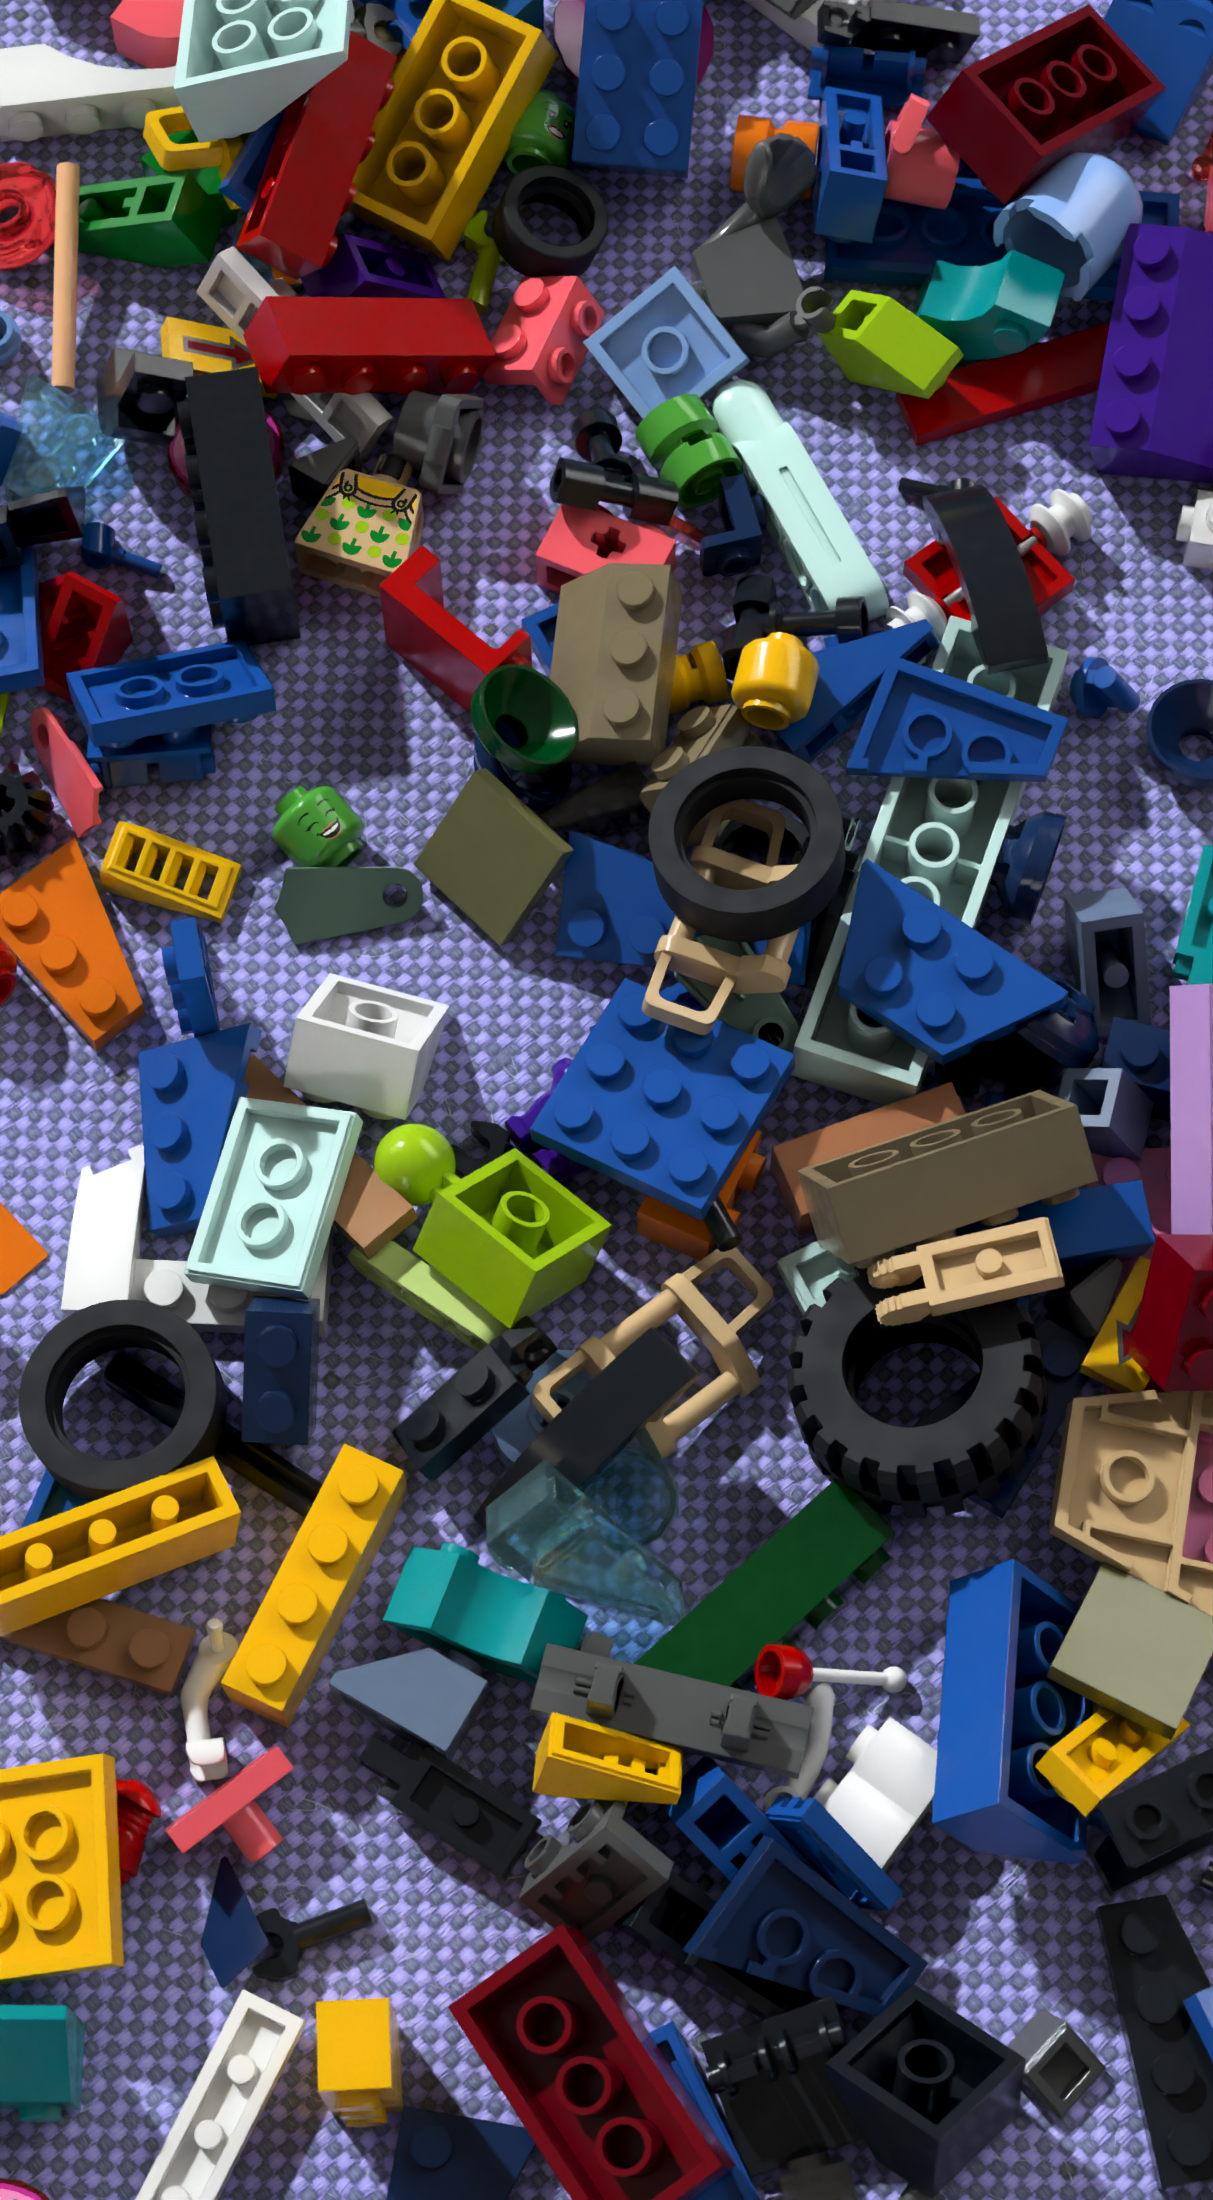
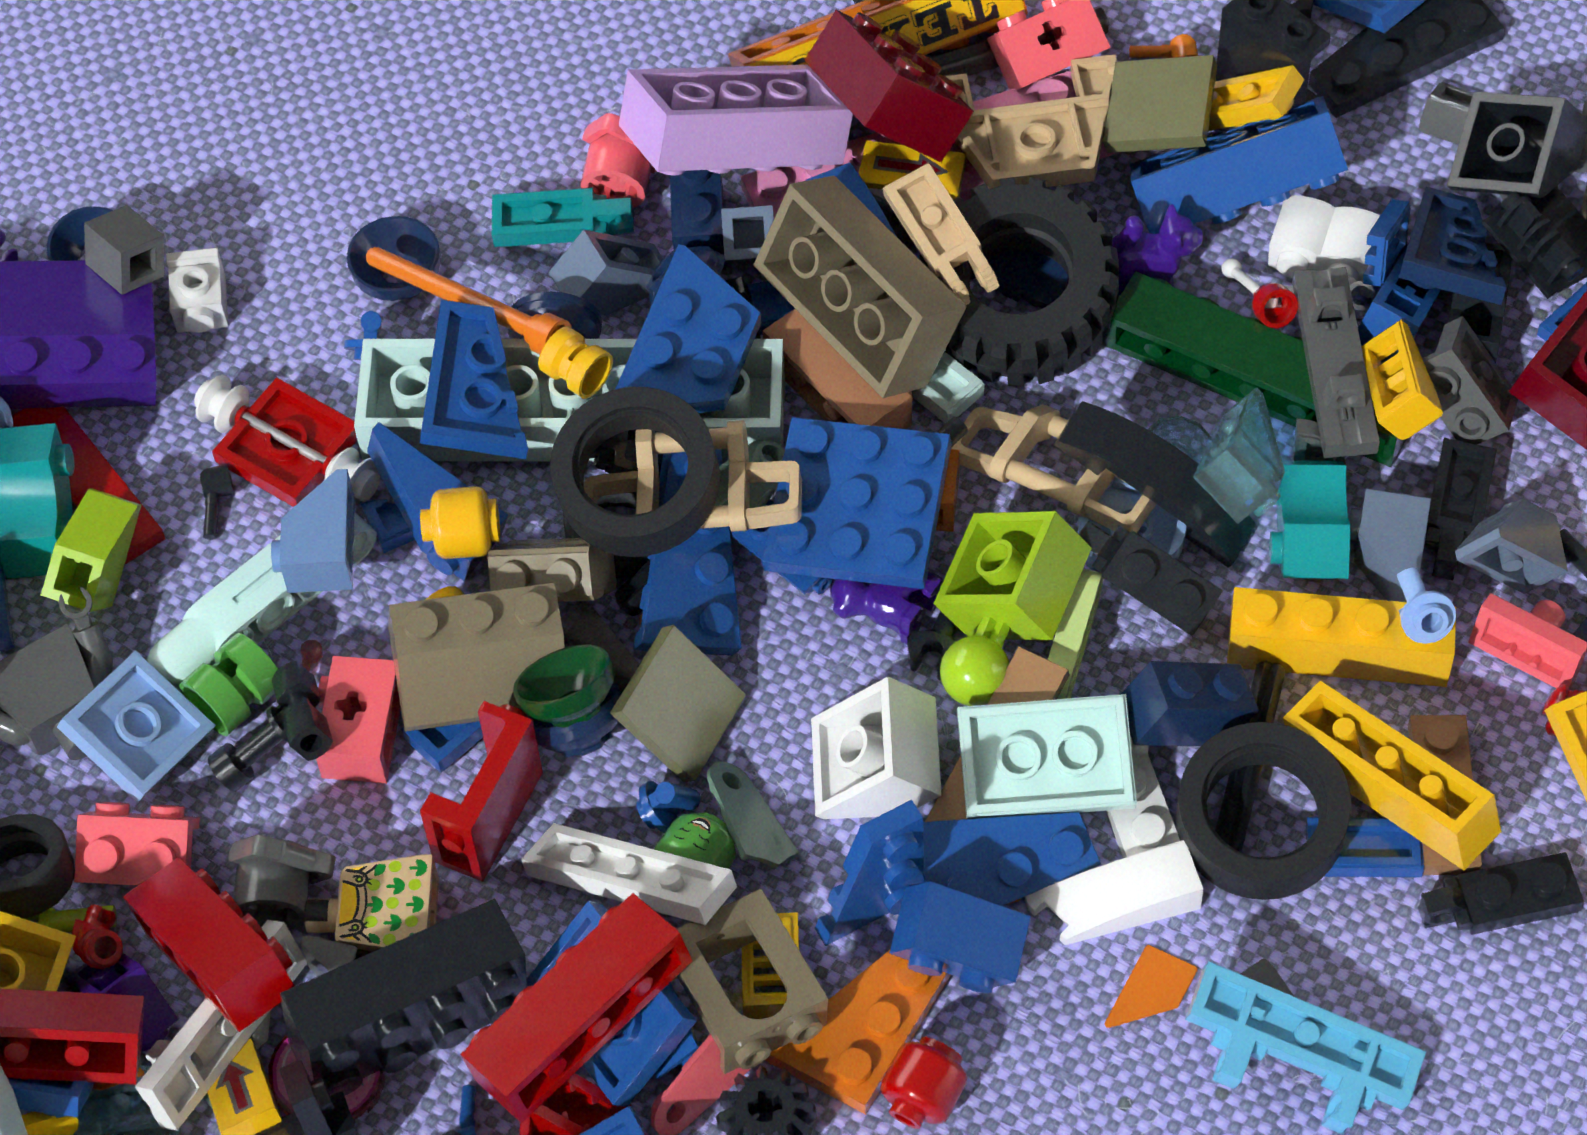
camera: 105 degrees left, 10 degrees down
(98, 862) = (740, 1039): none -> dark tan panel
(101, 1040) = (959, 936): none -> blue brick
(138, 626) = (576, 1006): none -> red brick
(210, 1664) = (1500, 681): white piece -> none
(263, 1654) = (1424, 609): none -> light blue plate
(302, 747) = (620, 868): none -> white plate
(352, 1826) = (1516, 547): none -> sand blue slope
(393, 821) = (662, 803): none -> blue plate
(433, 269) = (95, 940): none -> red arm
(741, 542) = (288, 627): dark blue bracket -> none
(760, 614) = (393, 572): black bar -> none
(814, 549) = (318, 539): none -> medium blue slope
(917, 1581) = (1158, 253): none -> dark purple animal
(940, 841) = (580, 365): none -> yellow wheel
(990, 576) = (299, 407): black slope -> none
(998, 825) = (535, 328): none -> orange piece

